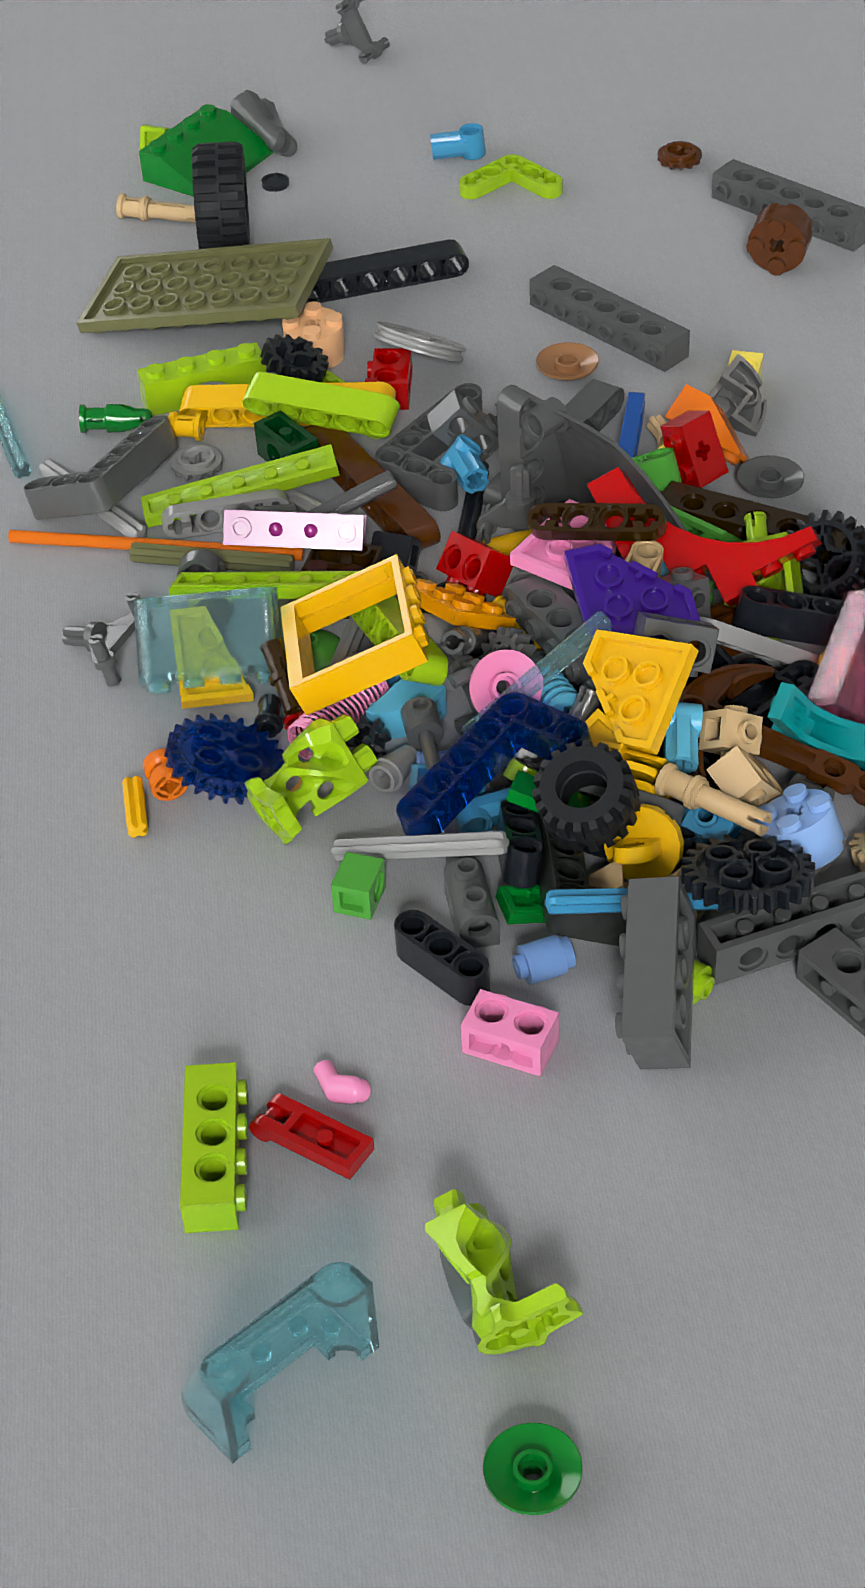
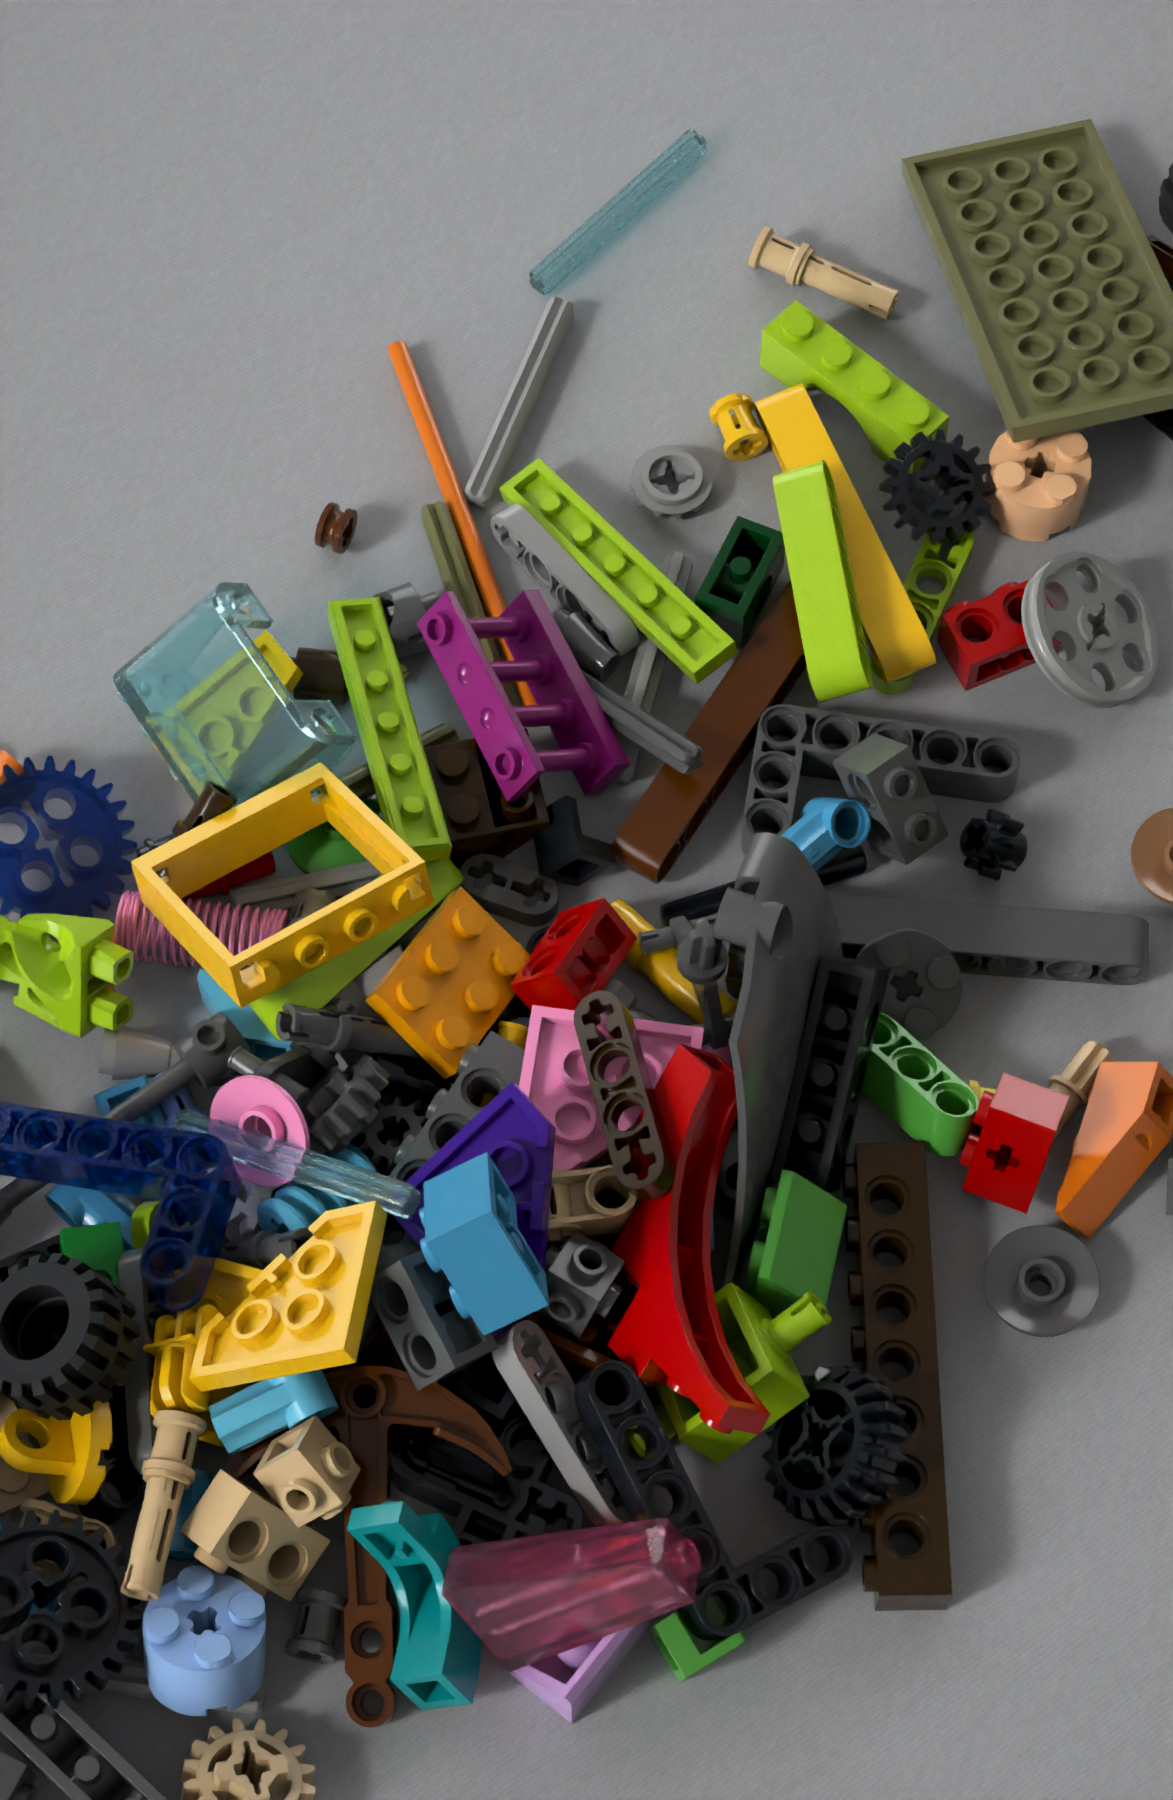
camera: 60 degrees right, 20 degrees up
(104, 640) = (219, 564): dark grey axle -> none
(106, 480) = (566, 404): dark grey beam -> none
(107, 375) = (802, 265): none -> tan pin
(111, 588) = (336, 527): none -> reddish brown bush
(112, 418) = (708, 326): green piece -> none
(373, 731) = (164, 996): black gear -> none
(632, 423) = (1047, 1030): blue beam -> none
(660, 575) = (478, 1245): none -> dark azure brick

